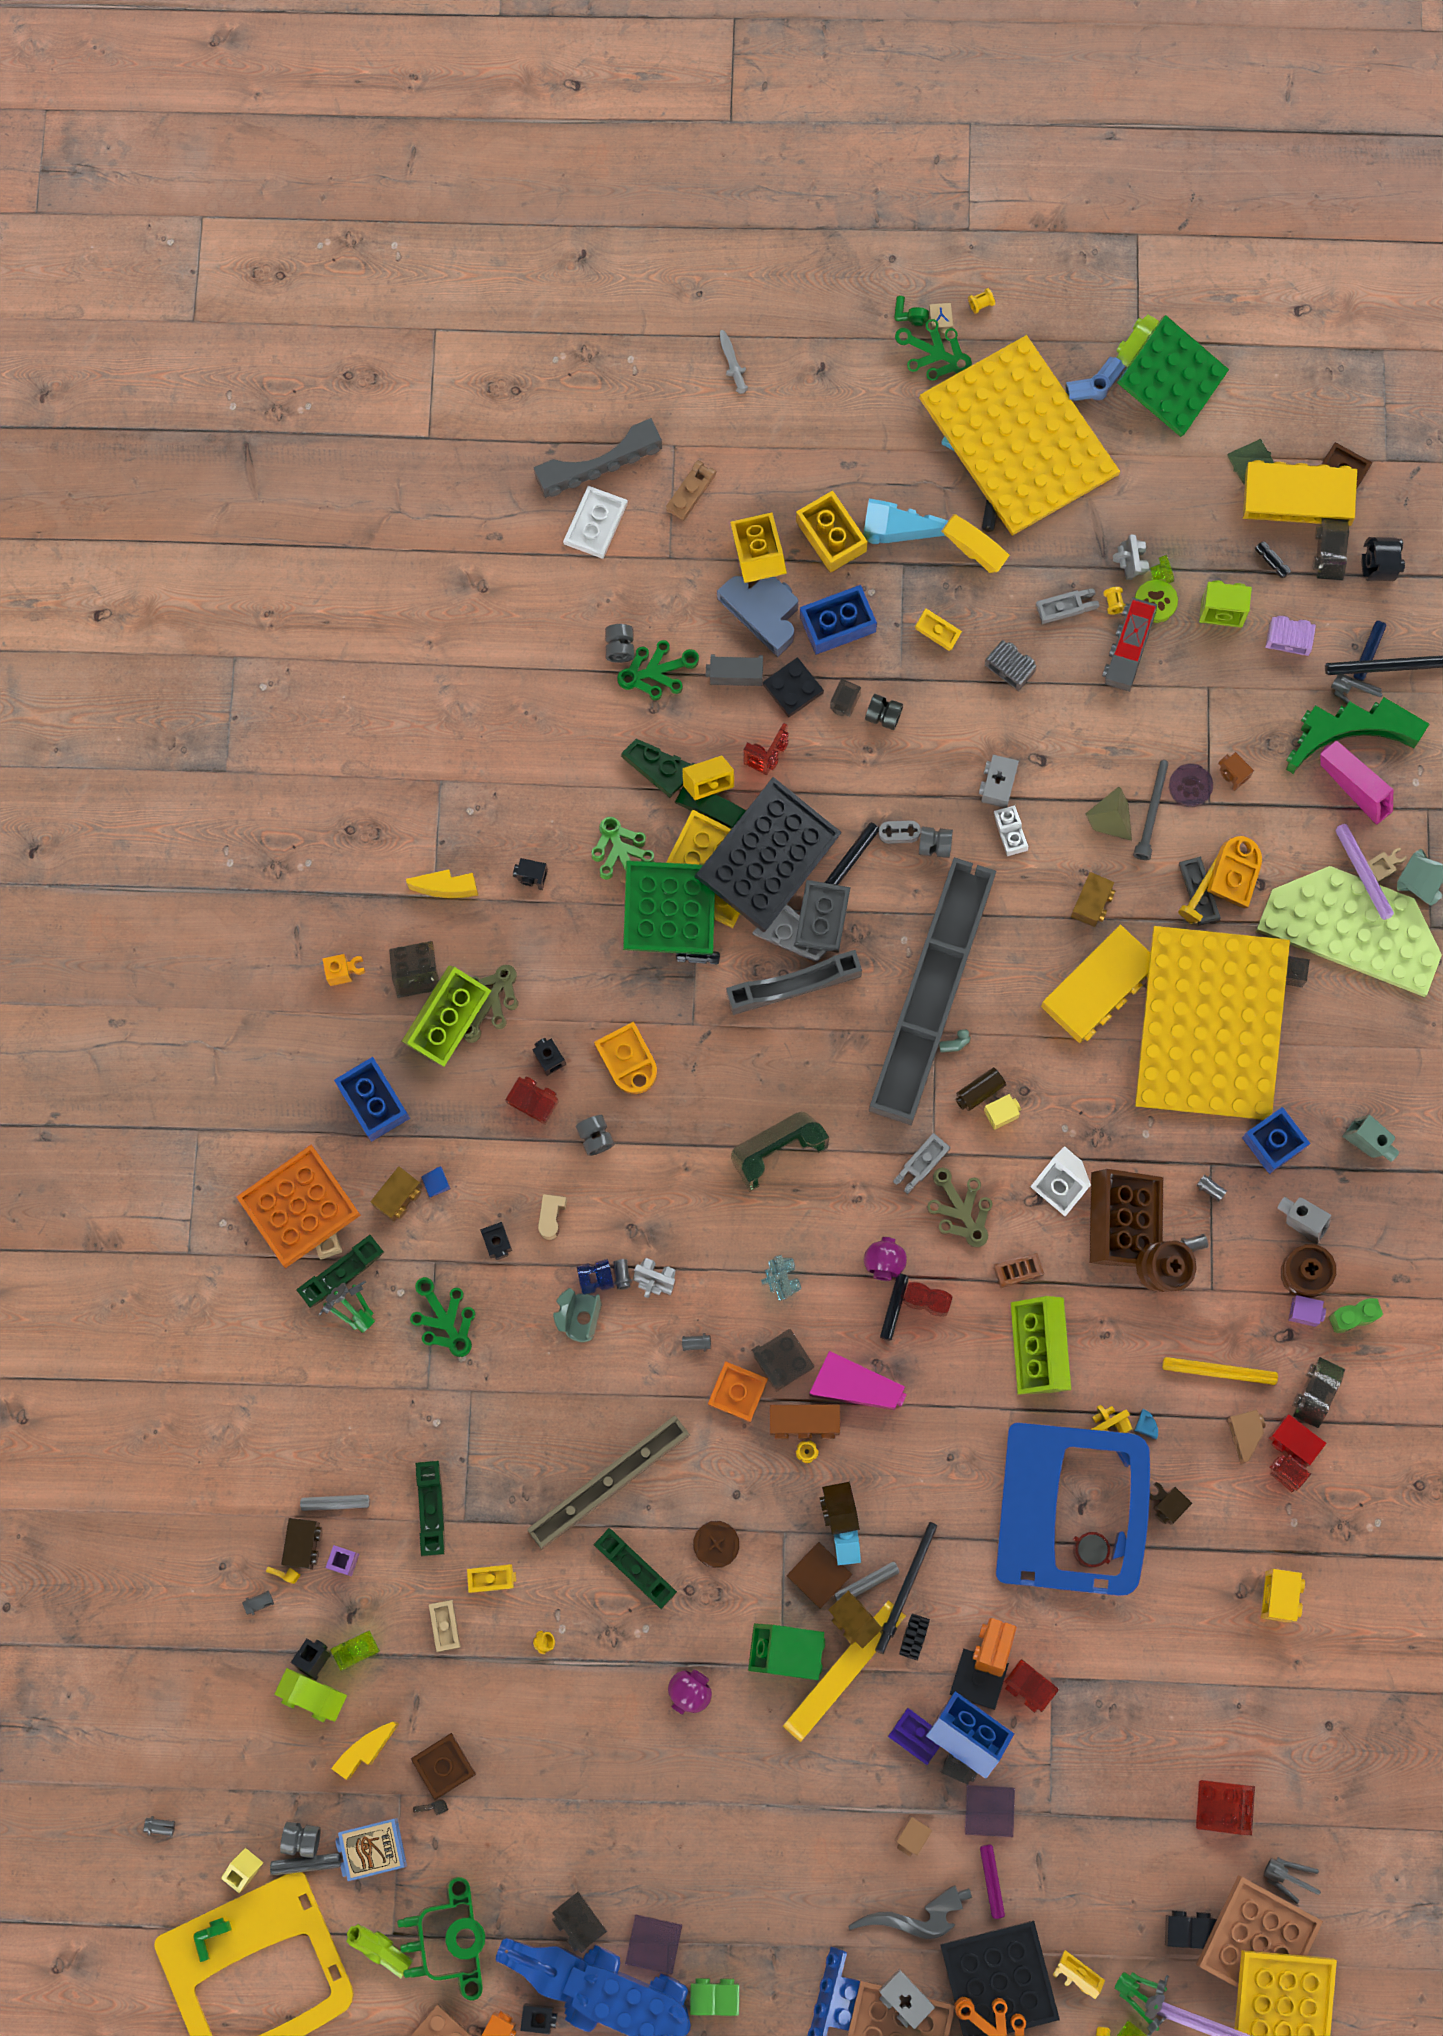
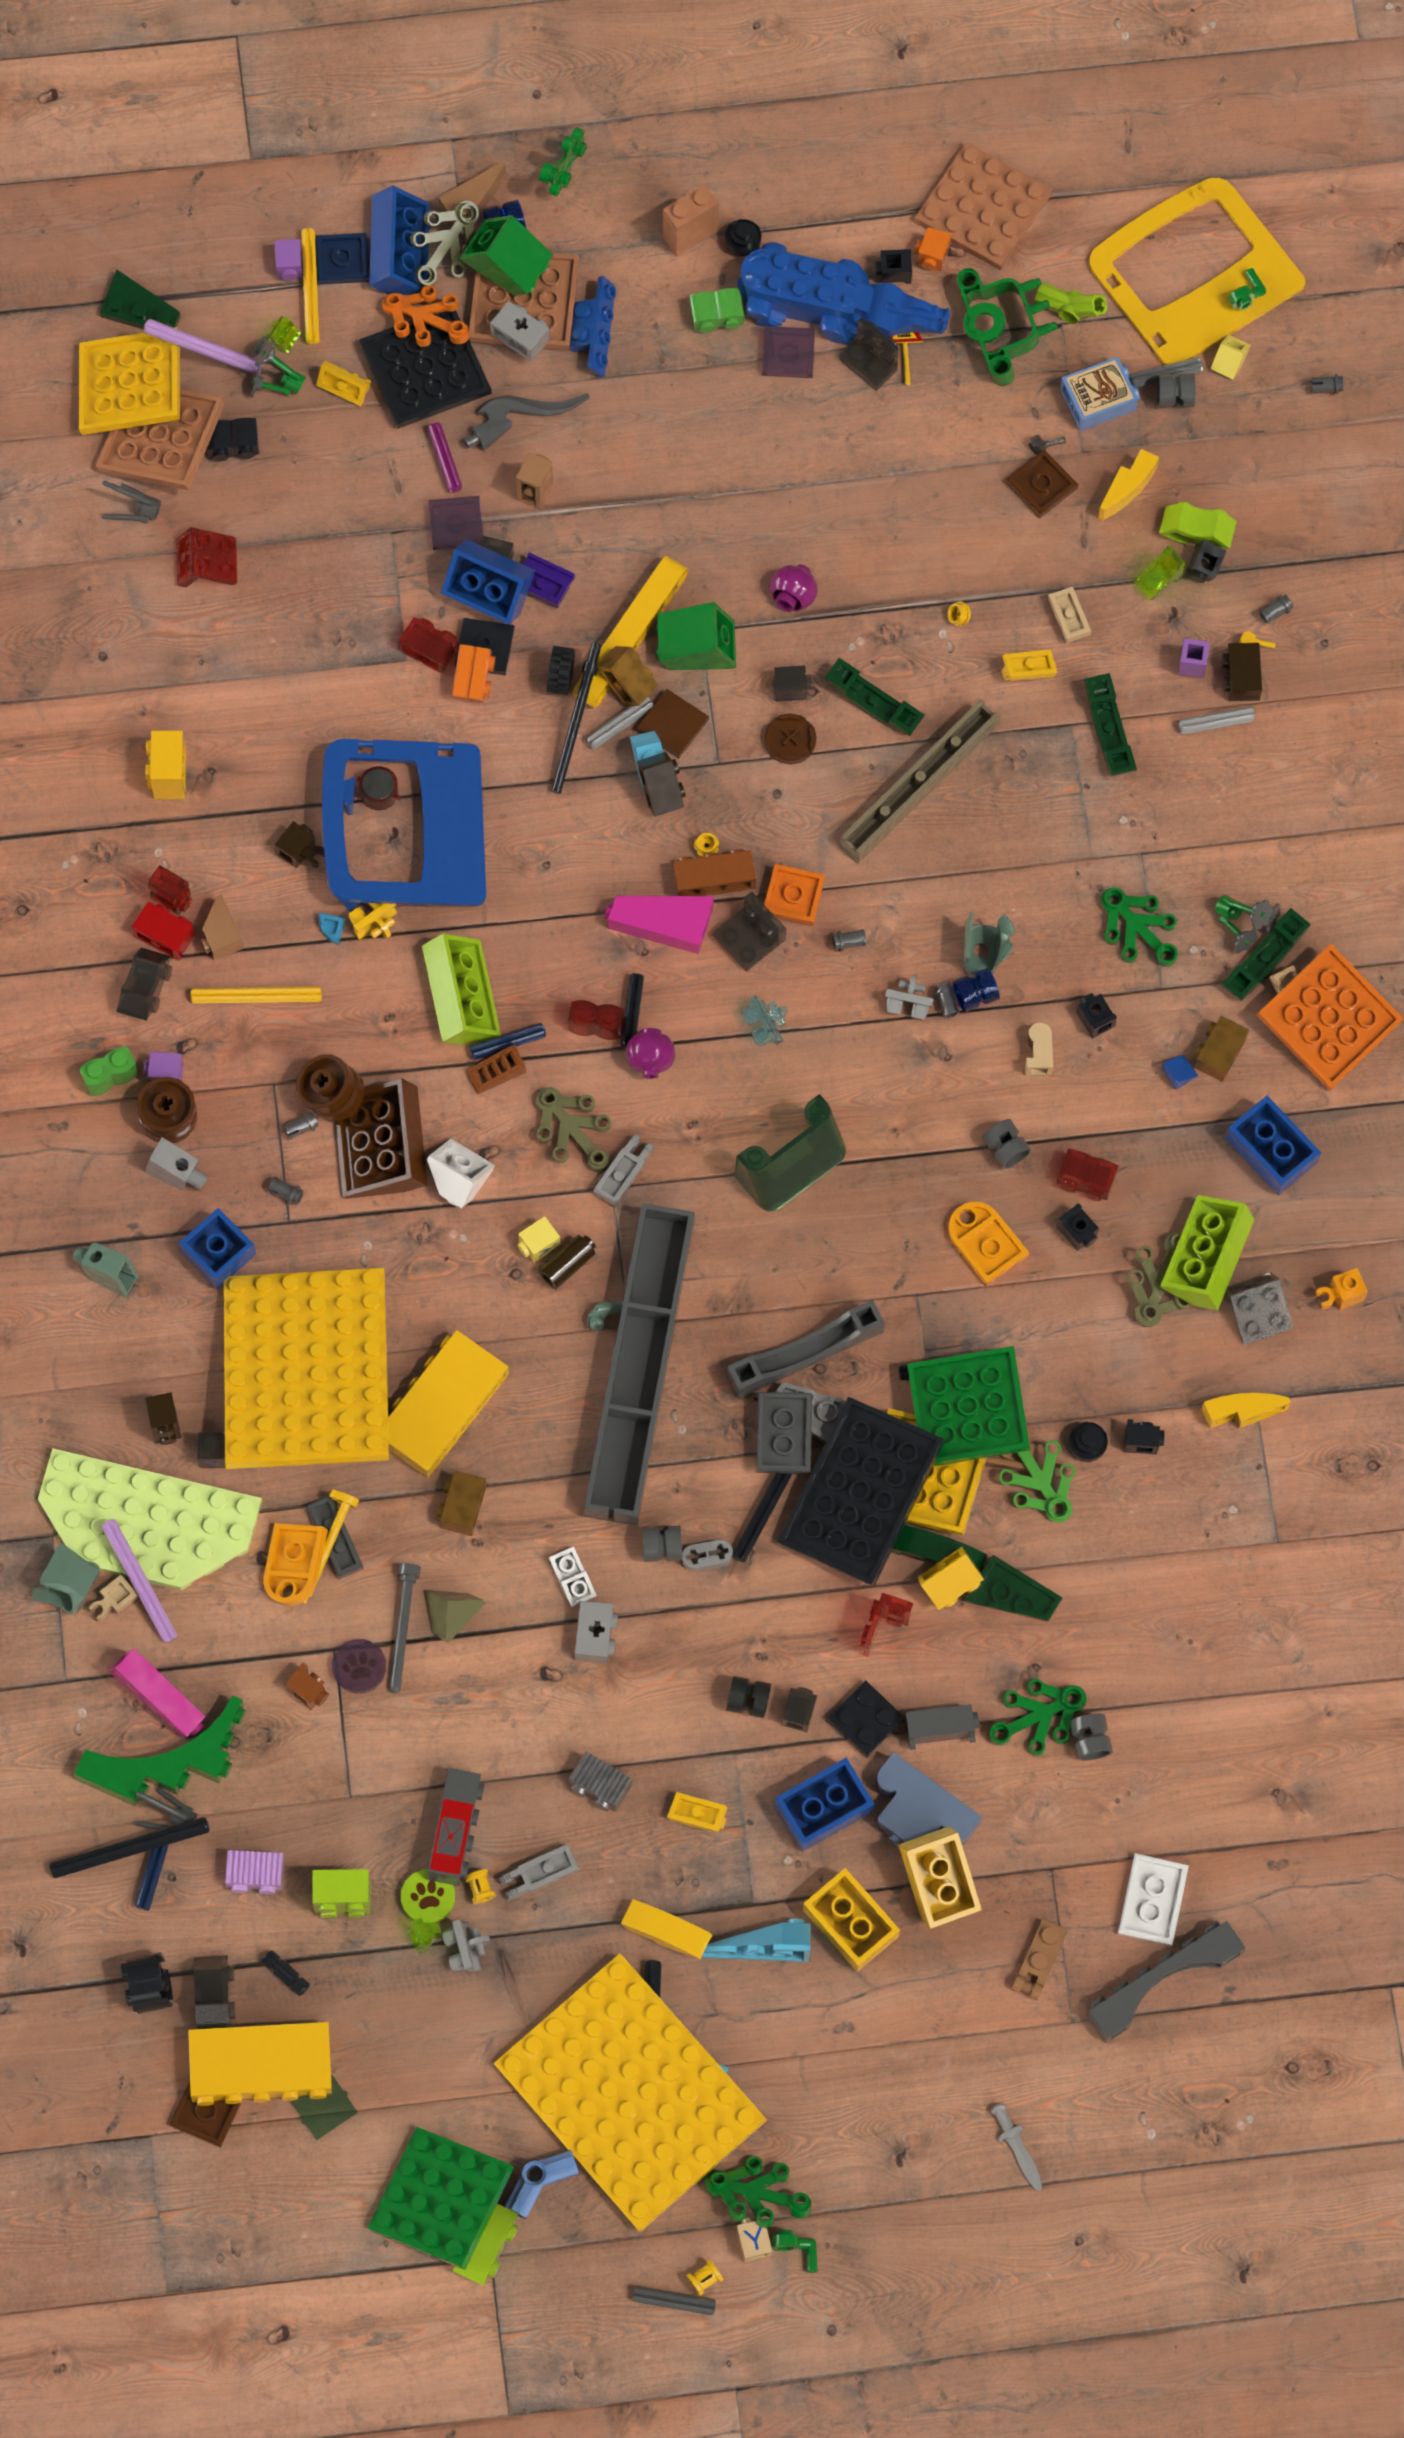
camera: 165 degrees right, 5 degrees down
(543, 1941) = (910, 337): none -> yellow piece
(576, 877) = (1087, 1442): none -> black plate
(706, 1595) = (791, 683): none -> clear smoke brick
(1005, 1295) = (504, 1041): none -> dark blue axle
(1006, 290) = (674, 2300): none -> dark grey axle
(1334, 998) = (163, 1418): none -> dark brown brick

